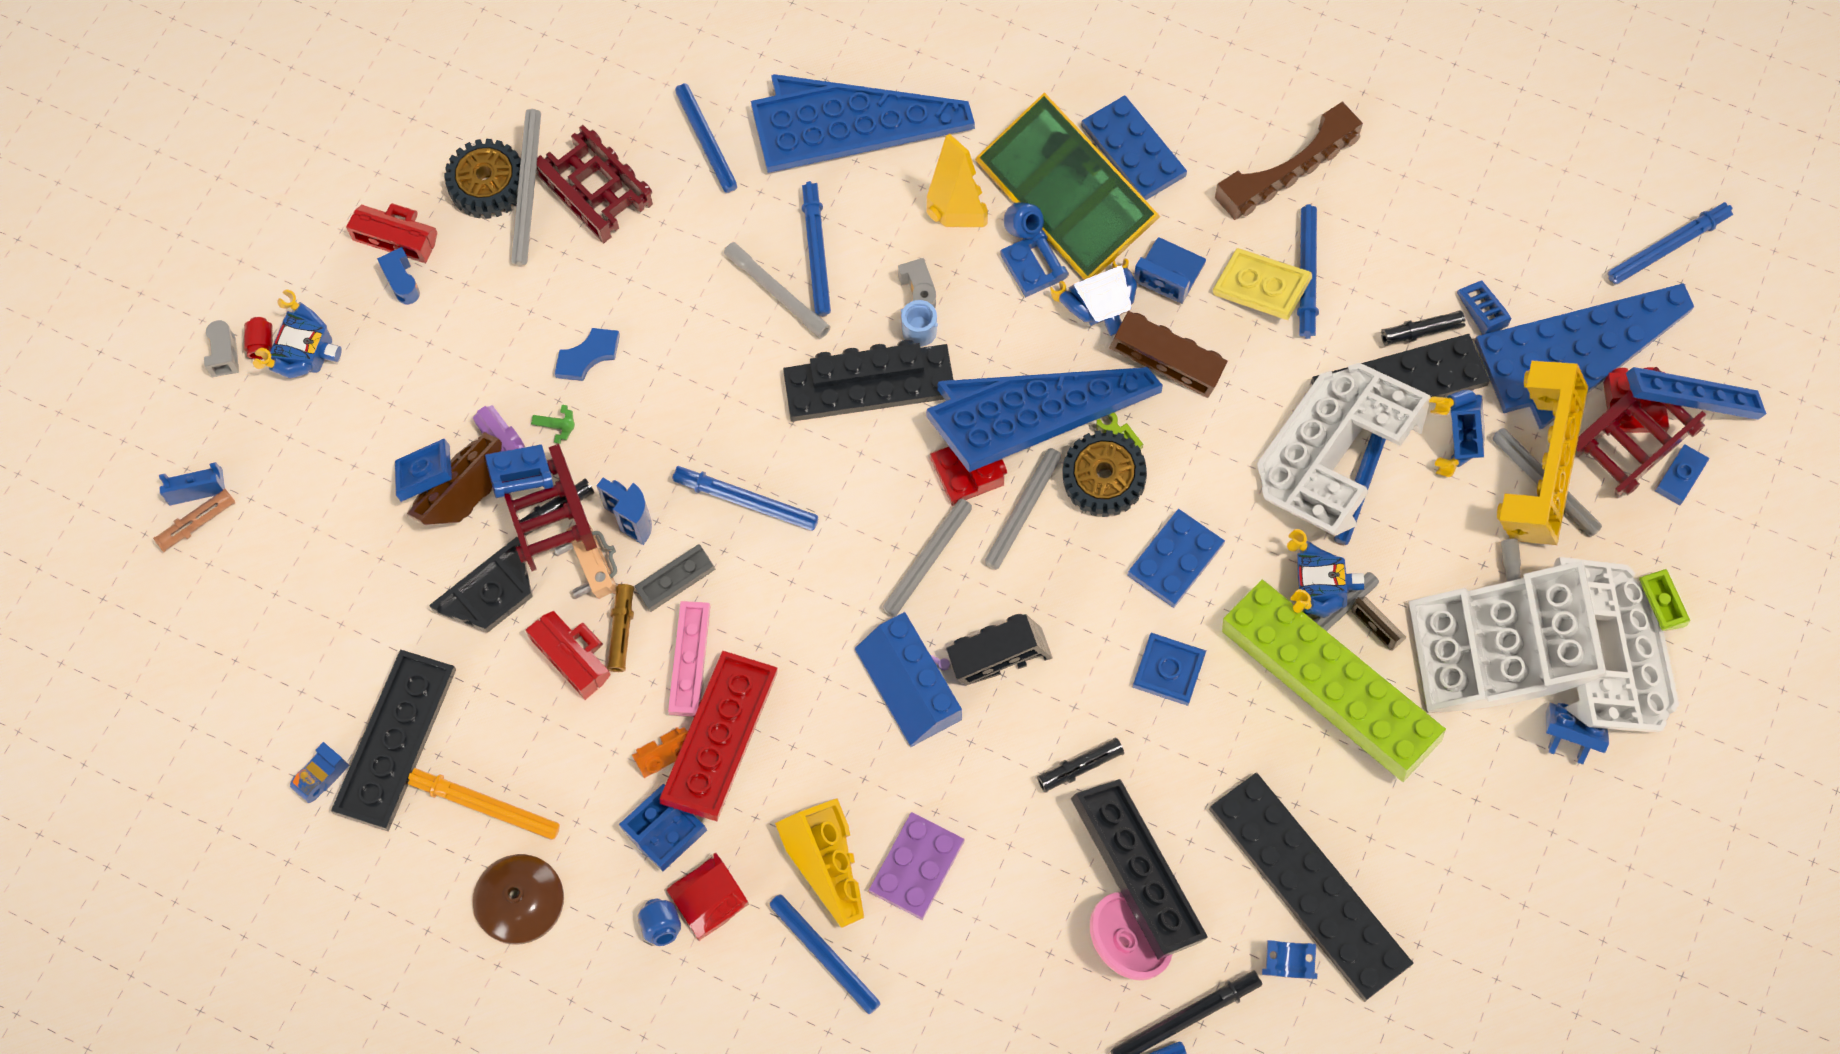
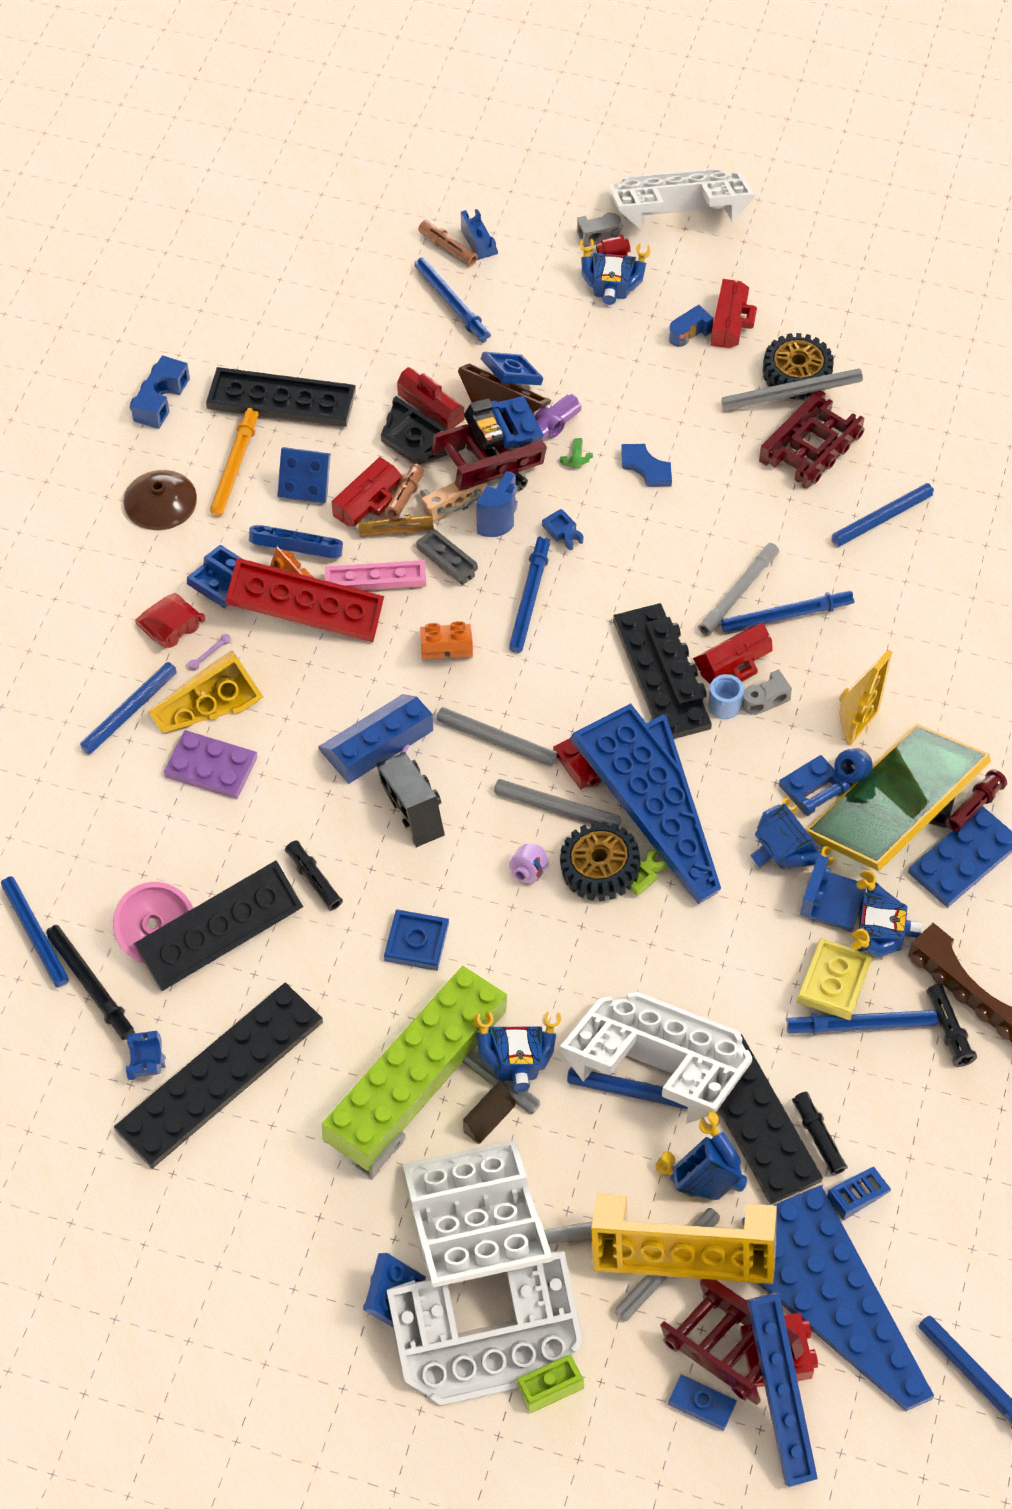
camera: 80 degrees right, 10 degrees down
(180, 271) = (681, 192): none -> white slope
(318, 773) = (248, 356): blue leg -> none
(322, 511) = (472, 322): none -> blue axle
(329, 873) = (165, 377): none -> blue arch
(442, 568) = (429, 398): none -> red piece
(523, 500) = (483, 424): none -> black leg
(532, 719) = (304, 475): none -> blue plate
(567, 606) = (407, 486): none -> nougat pin
(617, 741) = (295, 541): none -> blue beam
(659, 453) = (561, 526): none -> blue plate
(659, 922) = (144, 588): blue head -> none
(772, 875) = (194, 664): none -> lavender hinge
(797, 590) = (451, 638): none -> orange plate
(832, 120) = (929, 612): blue wing -> none
(868, 307) = (729, 654): none -> red piece
(1073, 111) = (982, 794): none -> dark red pin
(1096, 543) = (530, 862): none -> lavender head
(1168, 353) = (735, 900): reddish brown brick -> none
(1176, 558) = (528, 934): blue plate -> none
(1206, 230) = (881, 920): none -> torso
(1333, 197) = (955, 1037): none -> black pin

